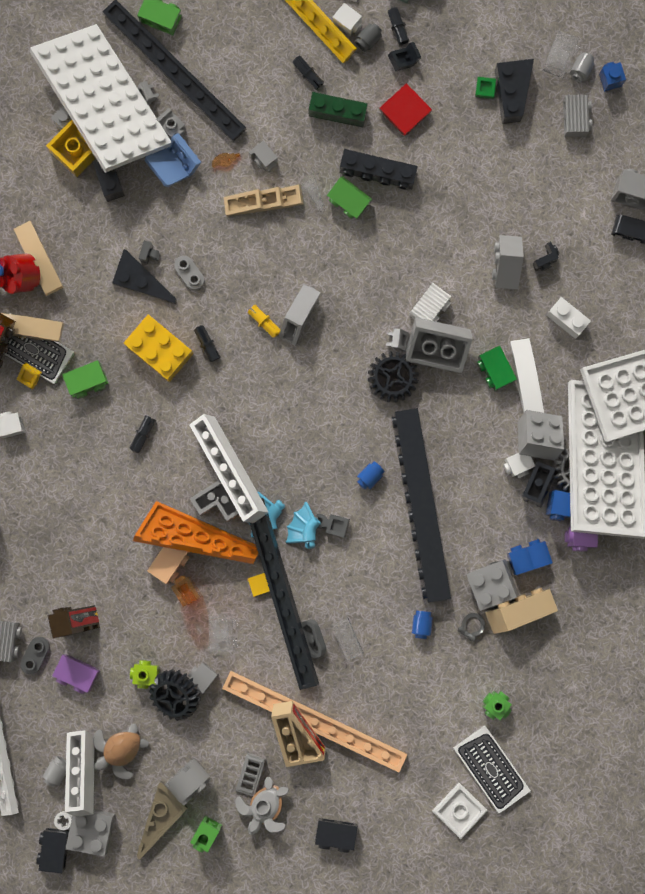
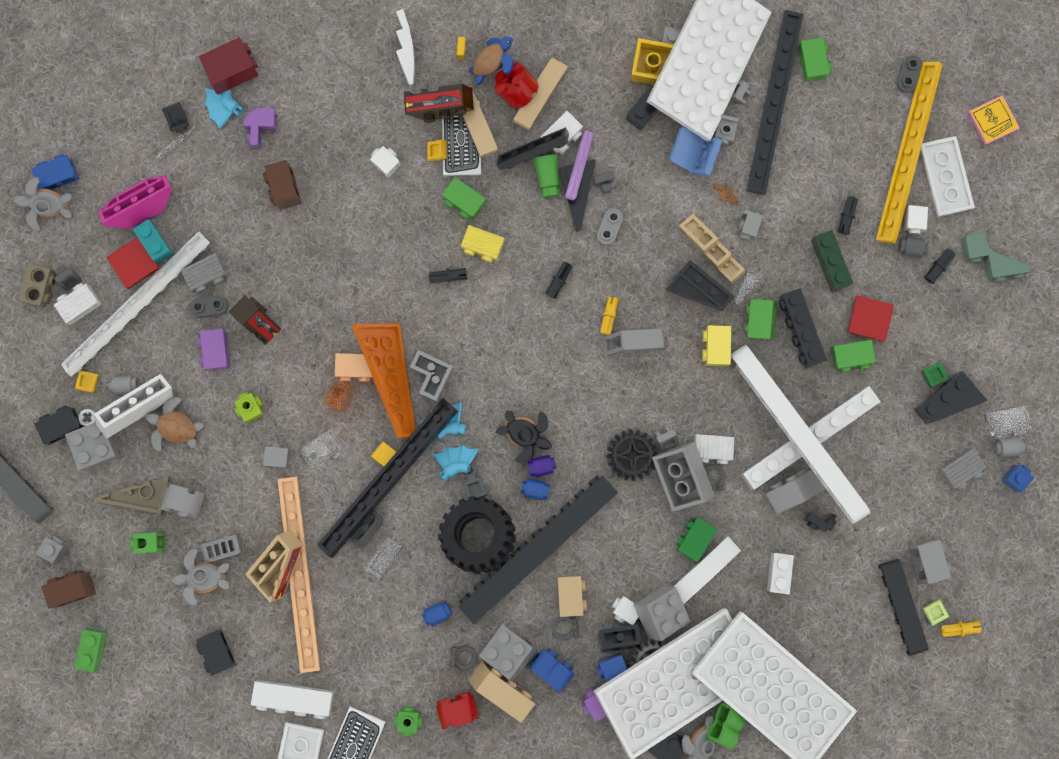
camera: 55 degrees right, 0 degrees up
(31, 802) = (86, 381): none -> yellow tile
(81, 294) = (537, 147): none -> black plate
(84, 262) = (573, 127): none -> white brick
(111, 296) = (548, 175): none -> bright green plant
(121, 264) = (579, 165): none -> lavender axle
(134, 388) = (482, 243): none -> light yellow brick
(158, 348) = (528, 242): yellow brick -> none
(178, 689) = (253, 443): black gear -> none
(229, 468) = (463, 366): white brick -> none
(289, 230) = (700, 287): none -> black wedge
(319, 453) = (525, 434): none -> black animal
(347, 248) = (717, 346): none -> light yellow brick
(353, 552) = (460, 517): none -> black tyre
(354, 457) = (541, 466): none -> dark purple brick
(404, 57) = (915, 289): black bracket -> none
(416, 792) = (292, 698): none -> white brick
(426, 143) = (853, 355): none -> bright green brick
(464, 322) = (719, 486): none -> dark grey piece
(465, 226) = (800, 435): none -> white beam
(472, 222) = (822, 430): none -> white brick
(478, 502) = (570, 596): none -> tan brick
(509, 521) = (574, 632): none -> dark grey piece
(514, 658) = (457, 711): none -> red brick

